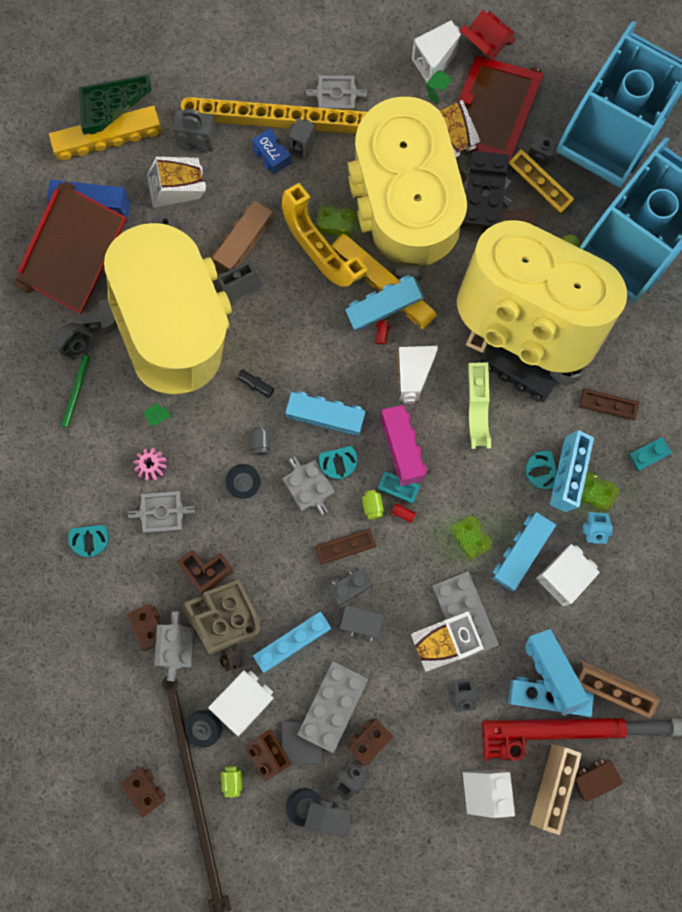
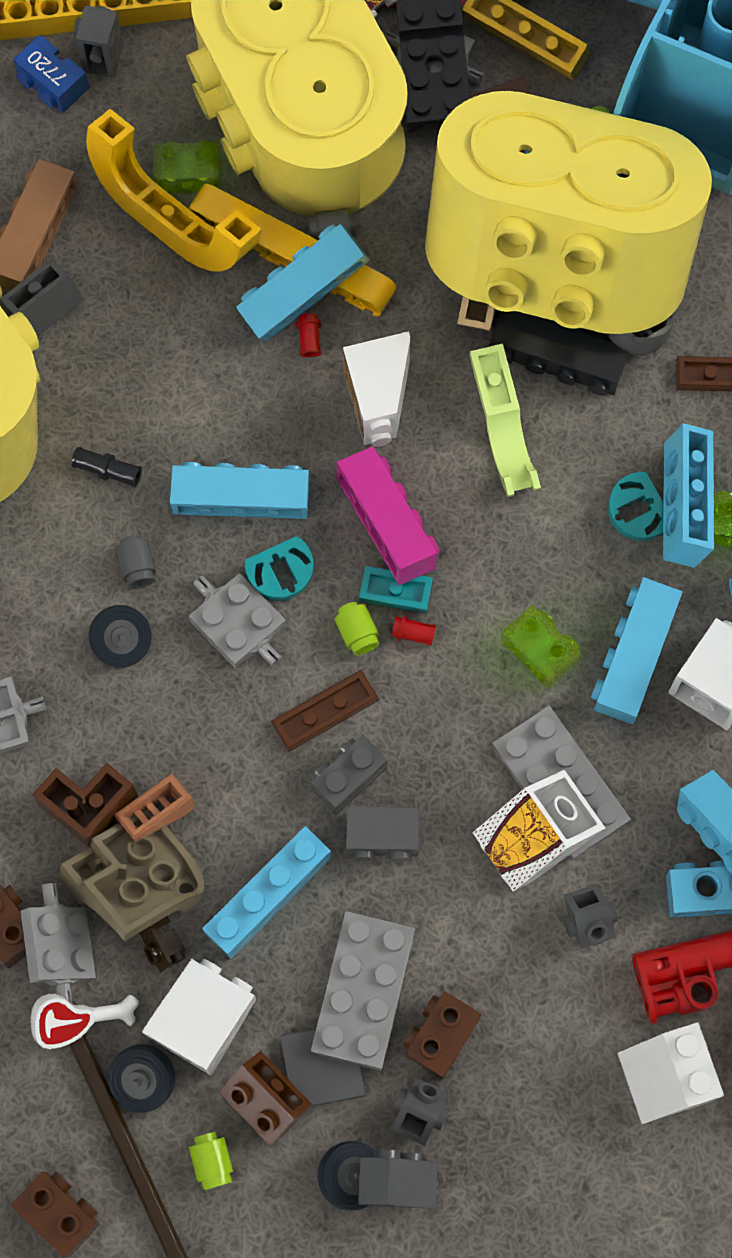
camera: 10 degrees left, 5 degrees down
(165, 689) = (59, 1022): none -> white piece
(250, 571) = (167, 787): none -> nougat slope

